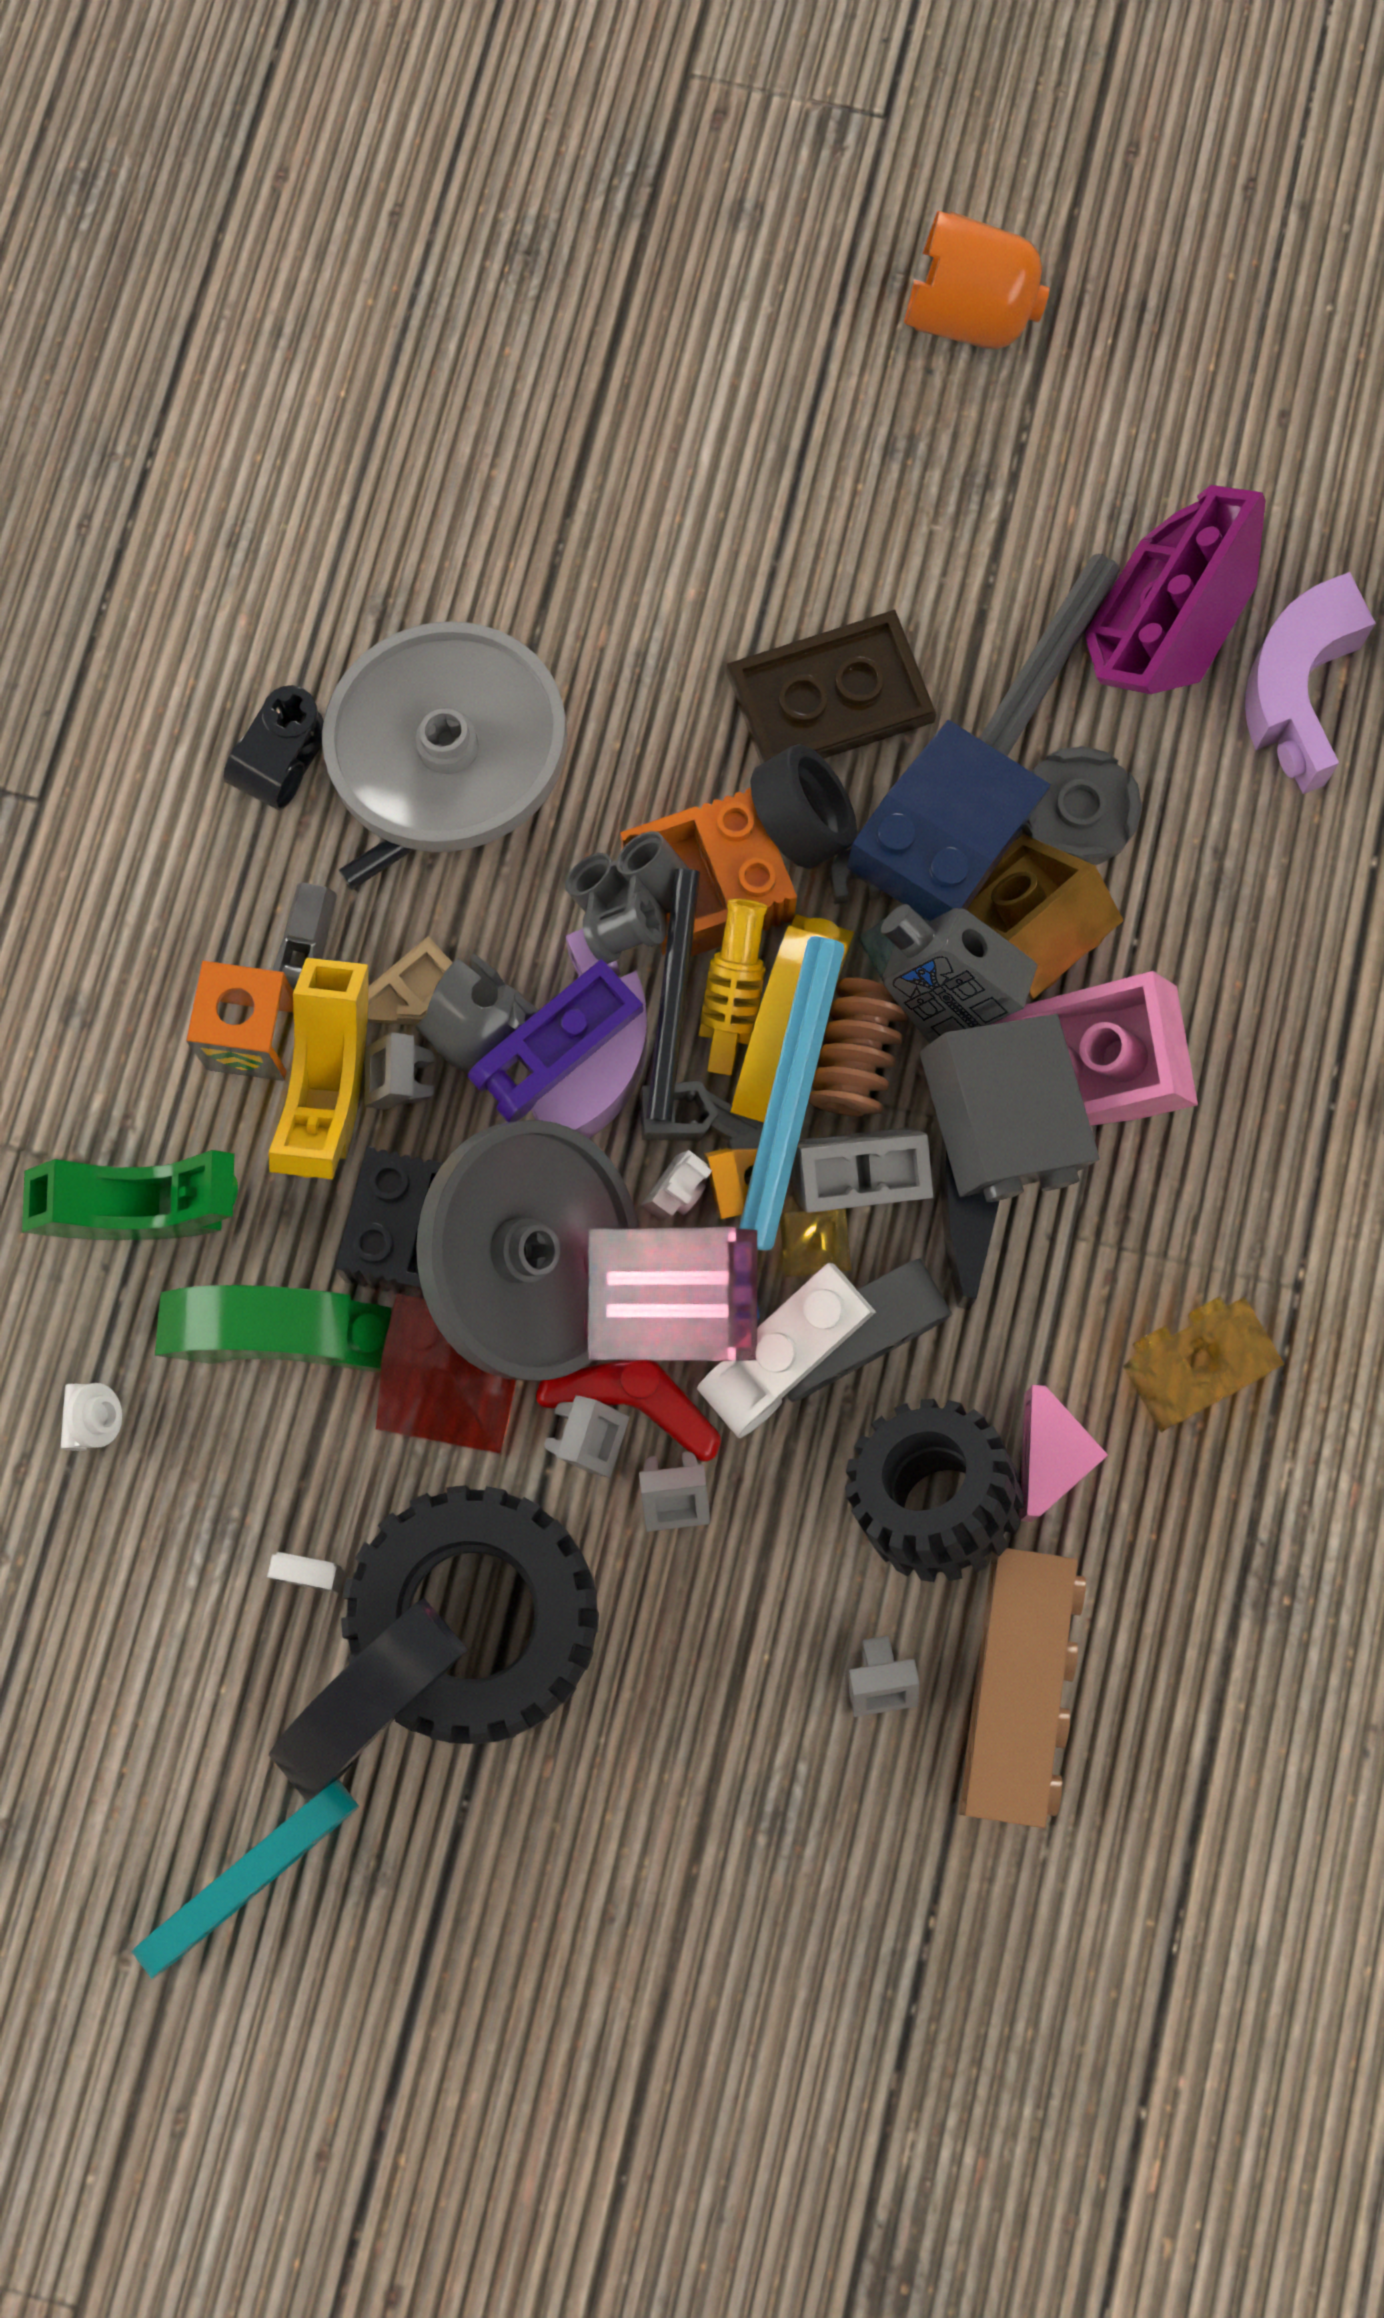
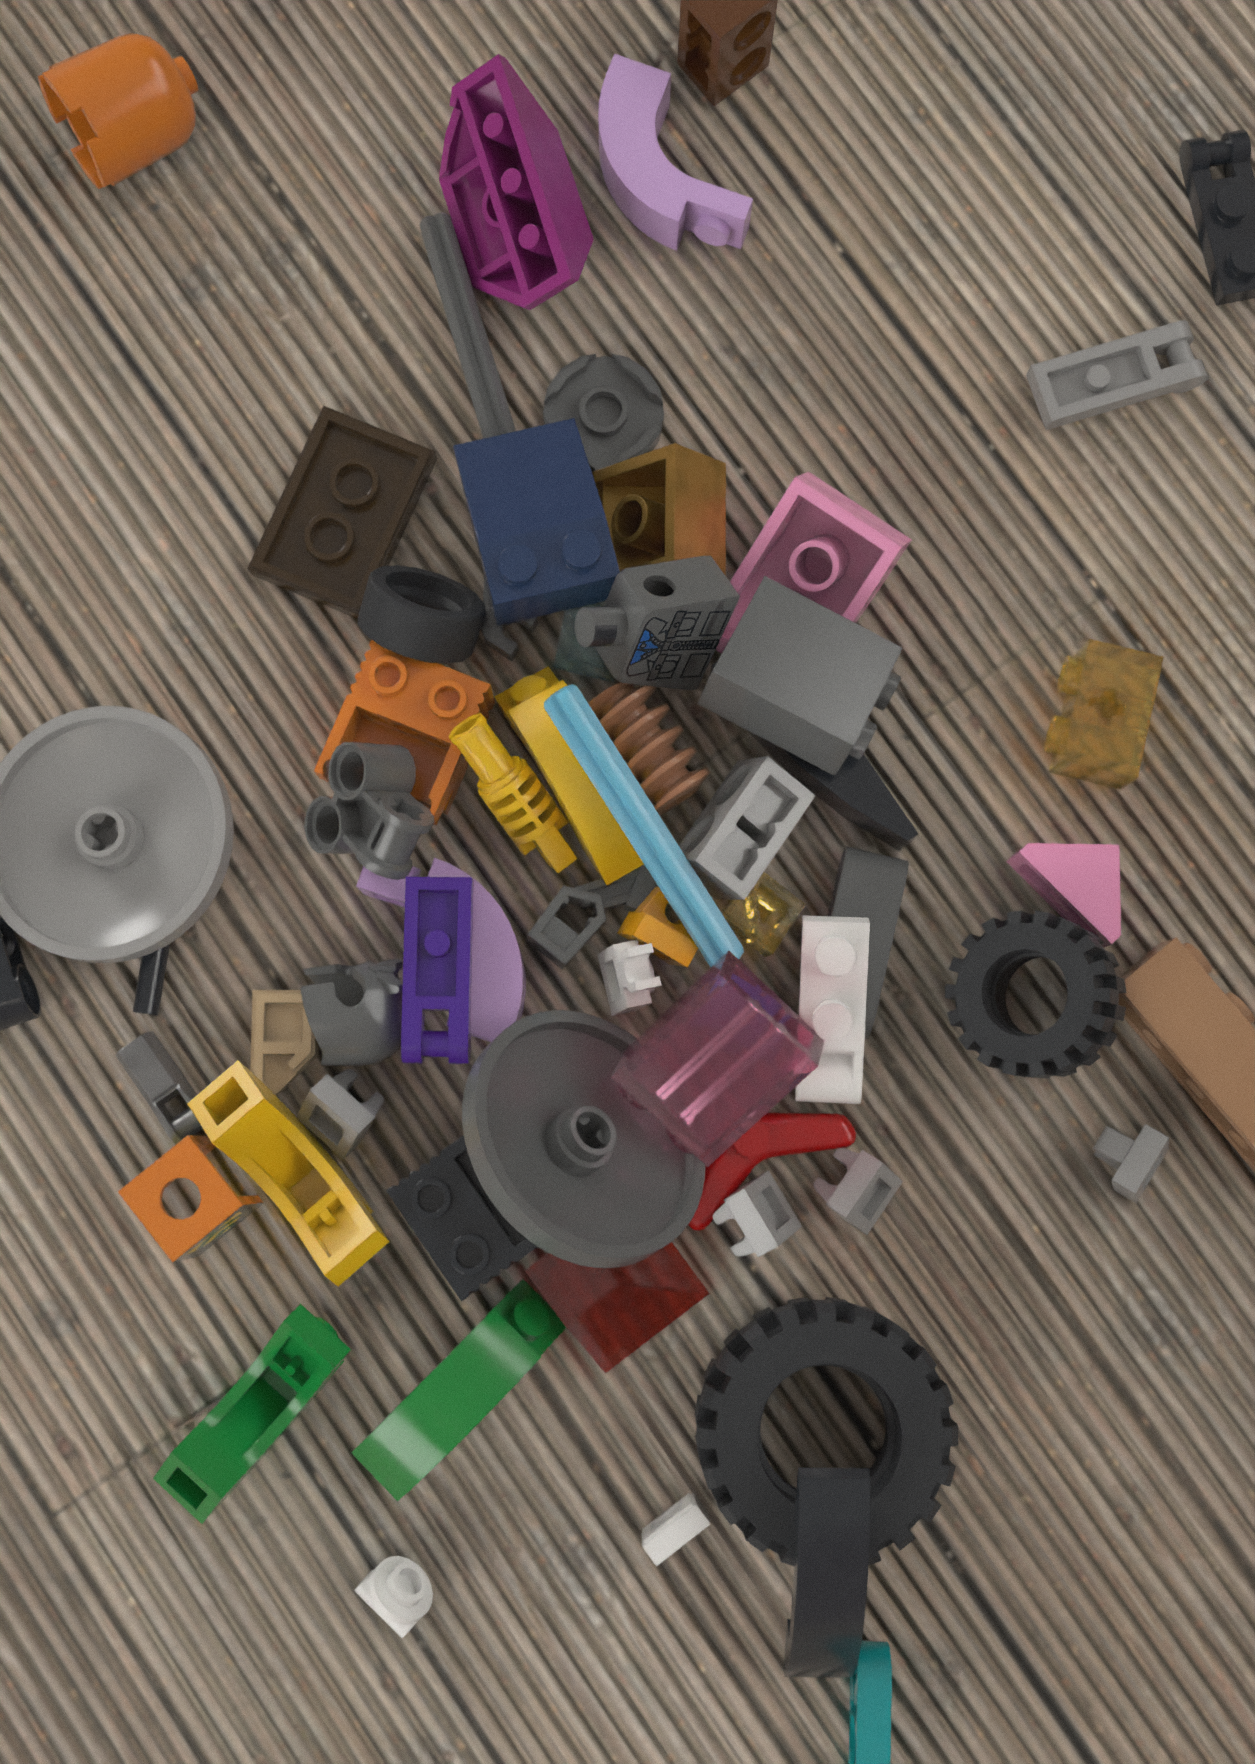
camera: 50 degrees left, 5 degrees up
(673, 995) = (482, 846): black bar -> none

